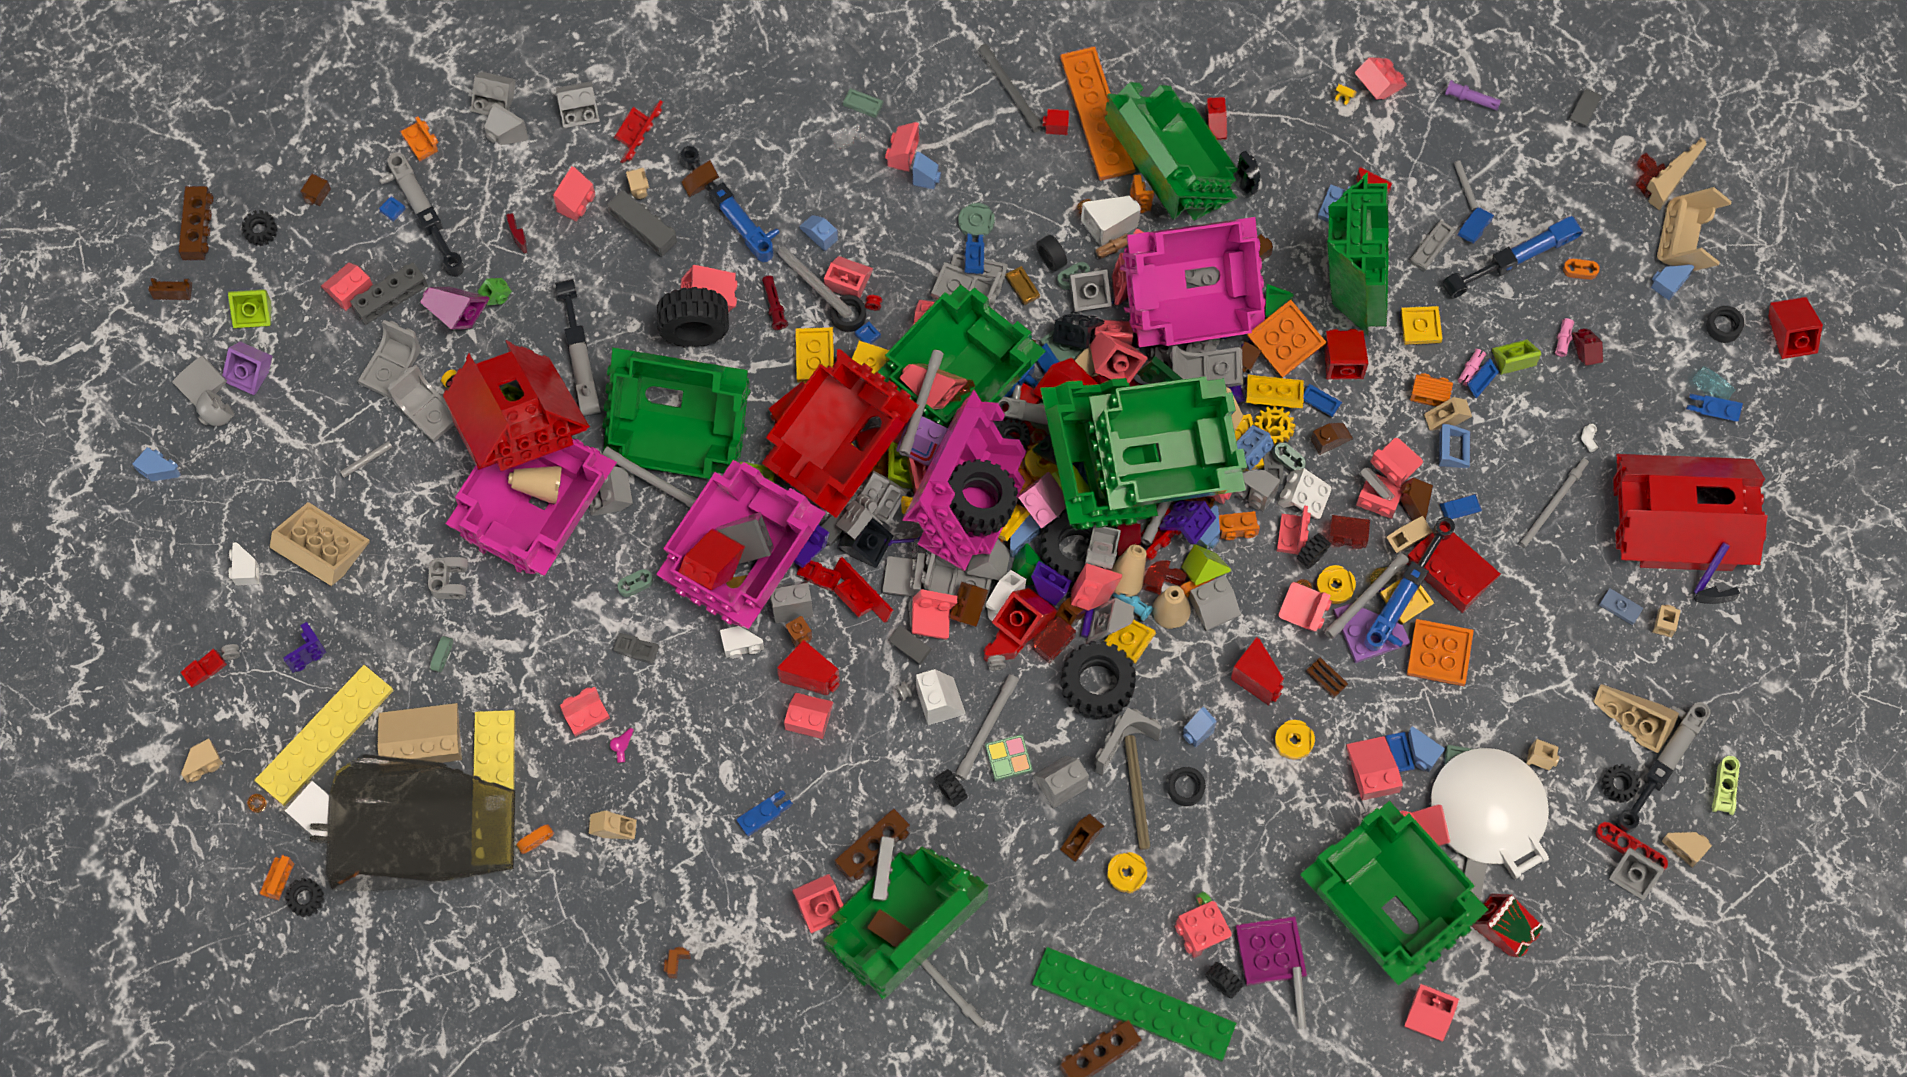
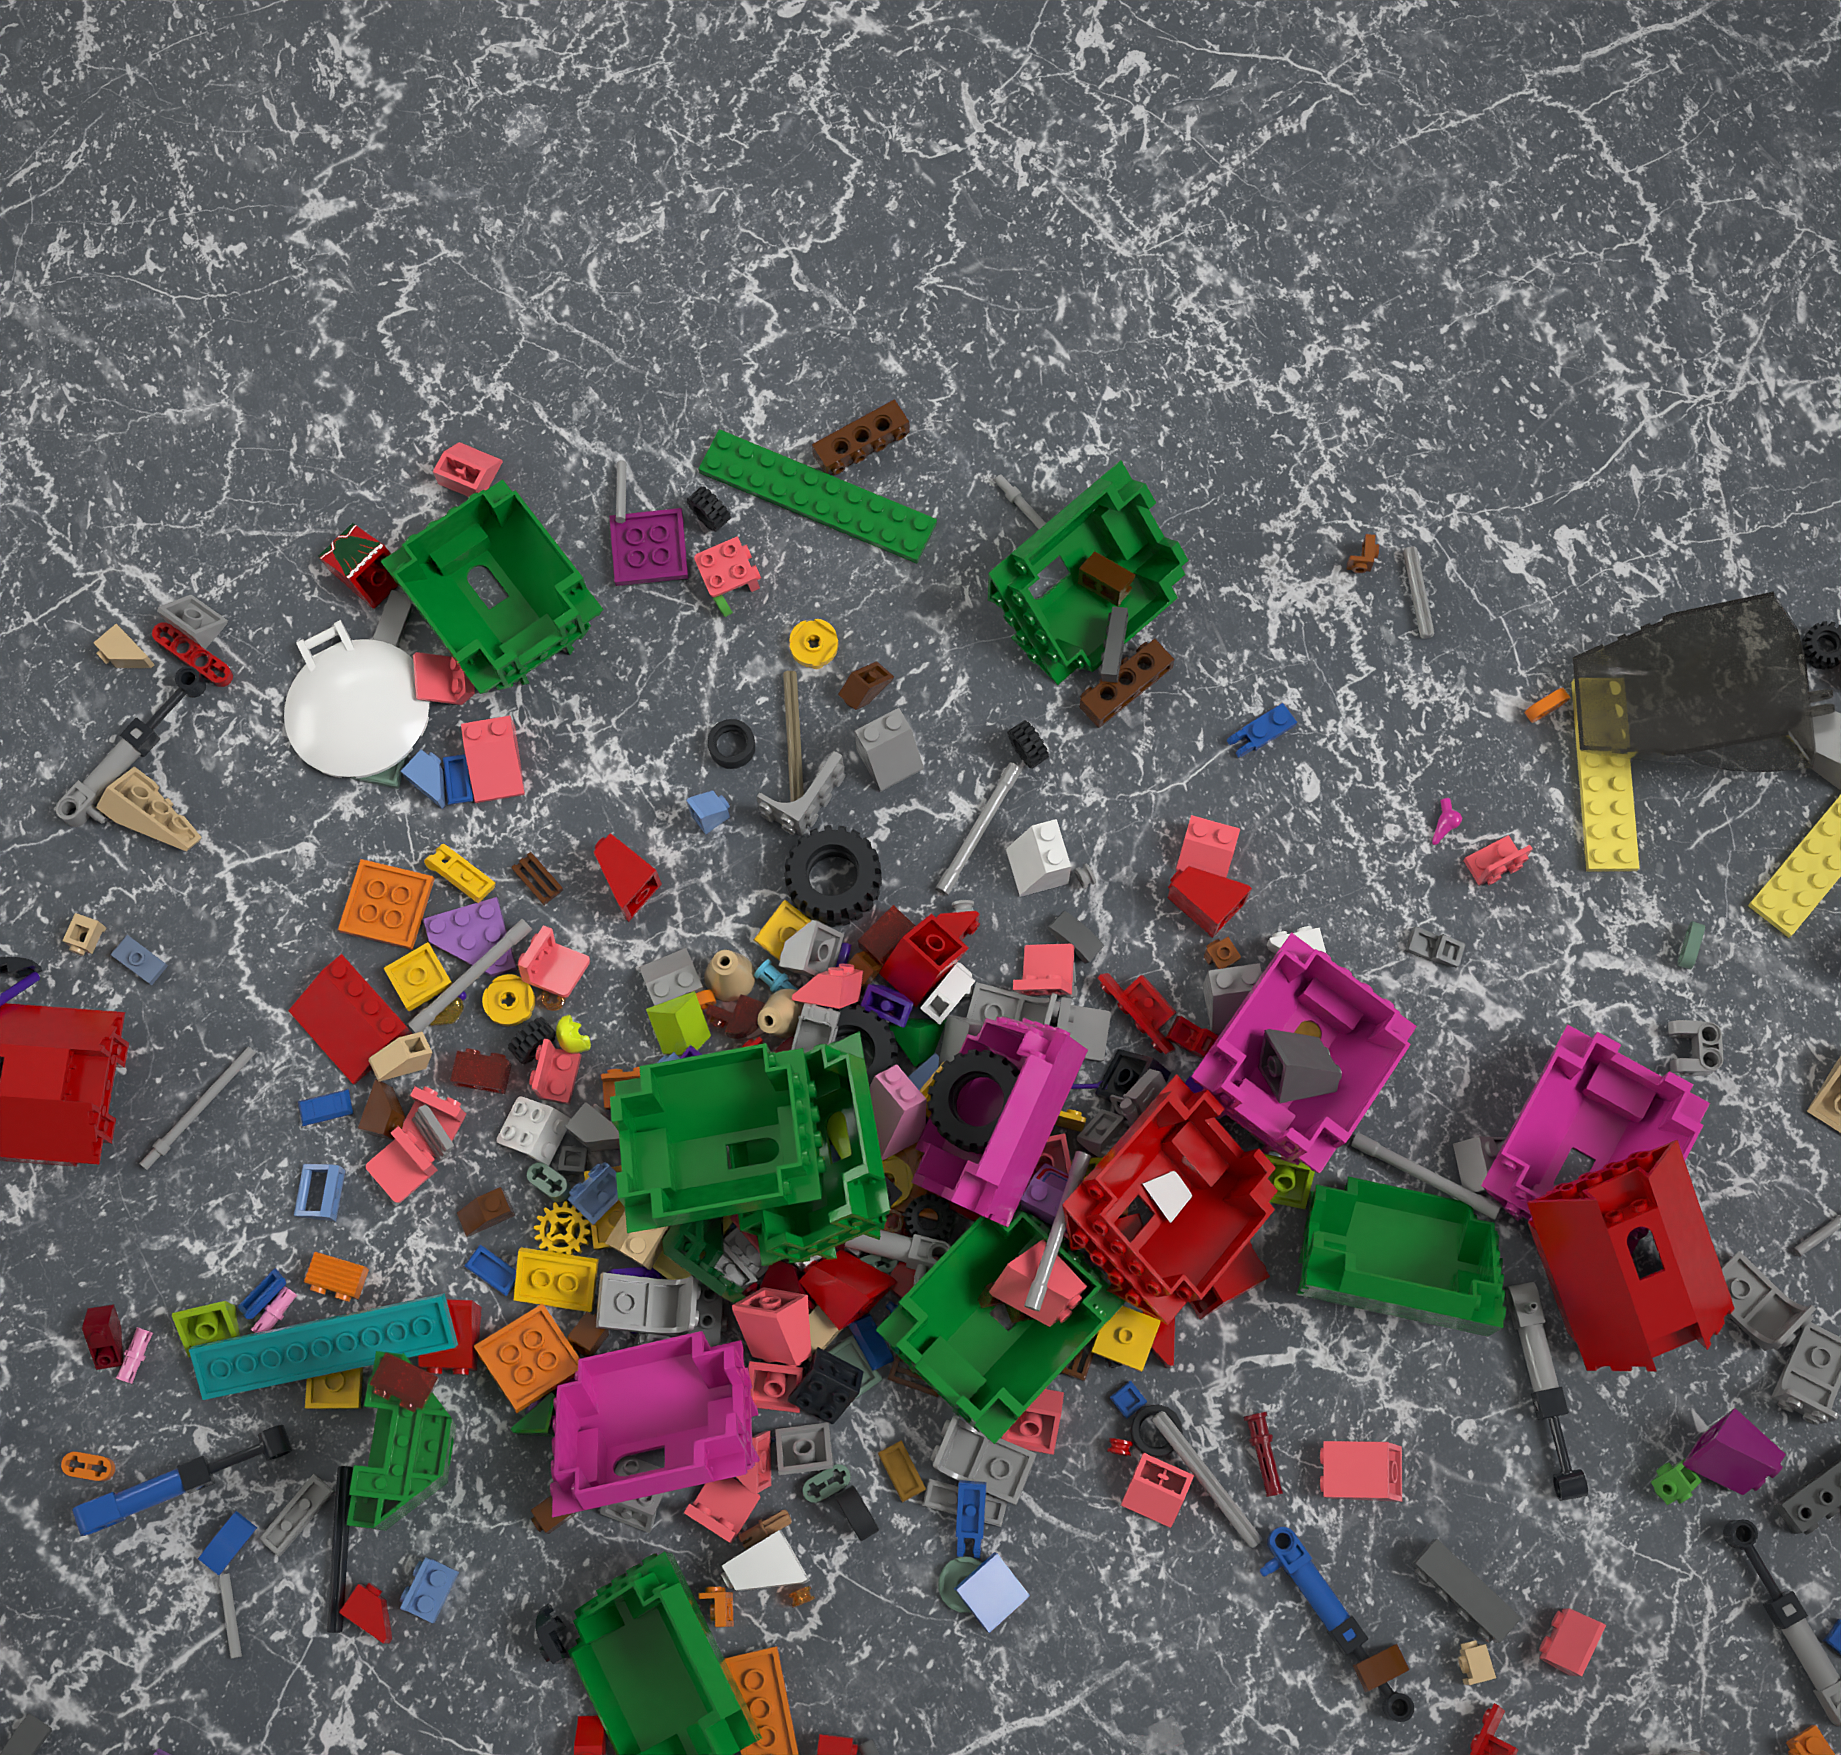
camera: 175 degrees left, 5 degrees up
(421, 734) = (1708, 839): tan slope -> none
(447, 378) = (1724, 1346): yellow tile -> none
(517, 234) = (1647, 1574): dark red slope -> none
(537, 482) = (1579, 1160): tan cone -> none
(612, 826) = (1452, 716): tan slope -> none
(632, 579) = (1439, 1031): sand green beam -> none
(632, 934) = (1418, 592): none -> light grey axle
(692, 317) = (1385, 1410): black tyre -> none
(712, 560) = (1344, 1026): red slope -> none
(813, 348) = (1204, 1366): yellow plate -> none
(818, 902) = (1193, 618): coral slope -> none
(820, 231) = (1201, 1571): medium blue slope -> none
(840, 455) = (1169, 1194): none -> white sticker
(903, 146) = (1073, 1711): coral slope -> none
(925, 172) = (1038, 1662): medium blue slope -> none
(958, 212) = (991, 1592): none -> tile
(969, 604) = (996, 982): reddish brown hinge -> none
(1008, 758) = (952, 789): tile -> none
(1284, 556) = (569, 1037): none -> neon yellow hair
(1286, 747) = (579, 788): yellow plate -> none
(1360, 251) = (404, 1382): none -> clear red brick
(1386, 676) = (460, 873): none -> yellow plate
(1399, 225) = (339, 1550): none -> black axle
(1405, 591) = (407, 986): blue piece -> none
(1430, 336) = (322, 1346): none -> teal plate
(1450, 412) = (319, 1238): tan slope -> none
(1542, 755) = (279, 765): tan brick -> none
(1587, 437) = (133, 1202): white arm -> none
(1612, 791) = (182, 718): black tyre -> none
(1725, 799) = (63, 706): yellowish green piece -> none

